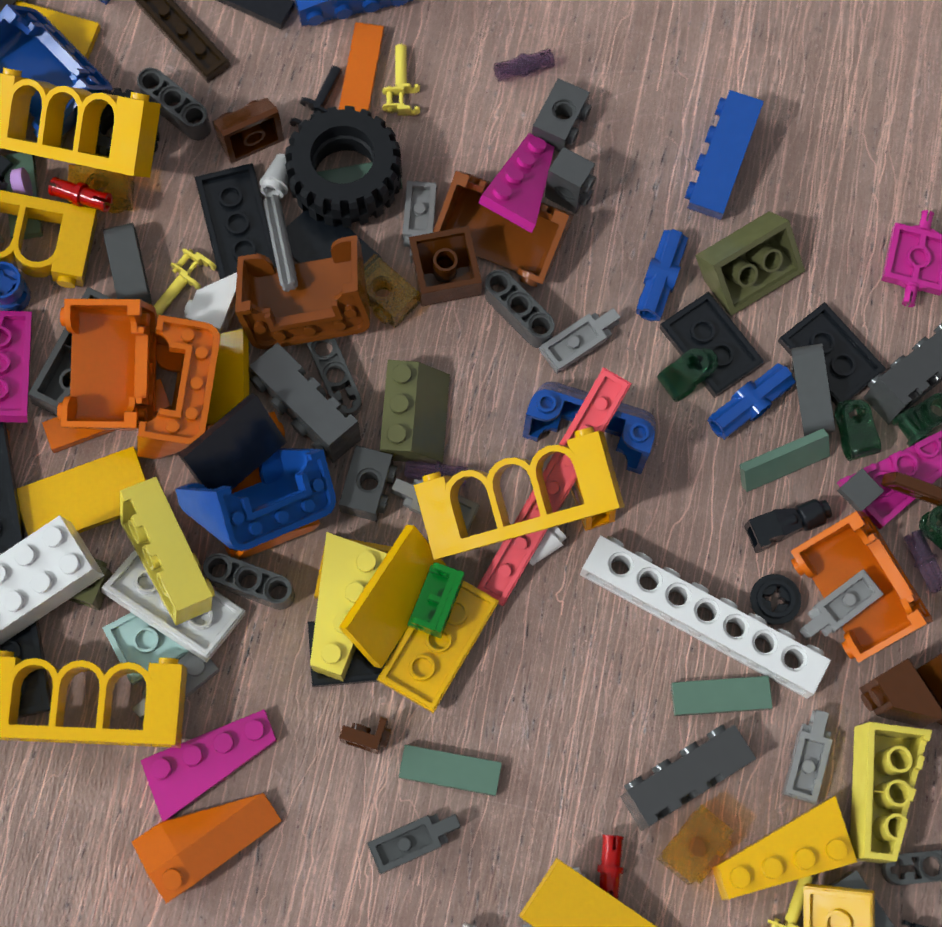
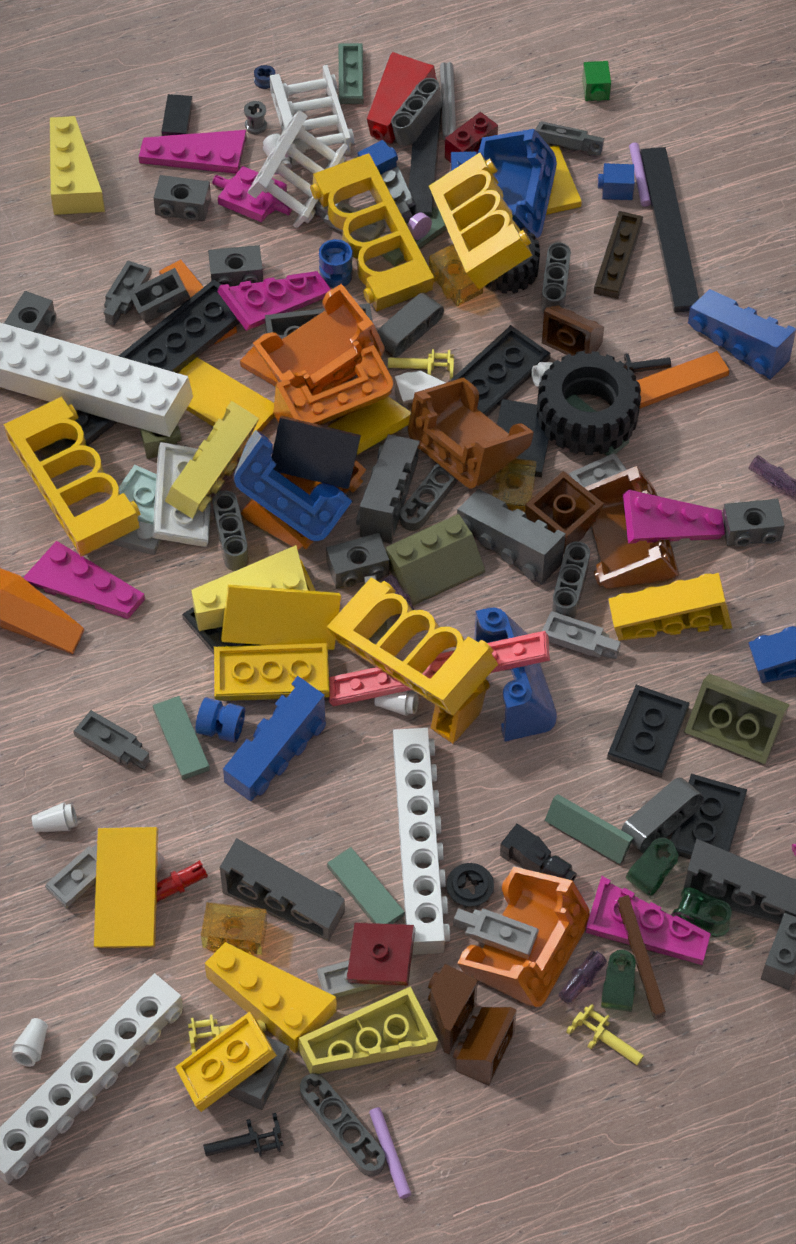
camera: 60 degrees right, 15 degrees down
(80, 194) = (435, 260): red pin -> none
(280, 243) = (498, 400): light grey axle -> none
(360, 736) = (168, 672): reddish brown bracket -> none
(401, 86) = (691, 409): light yellow piece -> none
(436, 599) = (298, 649): green hinge -> none
(437, 327) = (513, 536): none -> dark grey wedge
(462, 722) = (219, 719): none -> blue wheel
(521, 683) = (277, 740): none -> blue wedge
(570, 180) = (698, 550): dark grey brick -> none
(608, 242) = (671, 608): none -> yellow wedge
(661, 275) = (676, 662): blue piece -> none
(684, 375) = (608, 721): clear green piece -> none
(751, 401) = (618, 779): blue piece -> none
(812, 726) = (381, 954): none -> dark red plate
(860, 490) = (602, 892): dark grey tile -> none

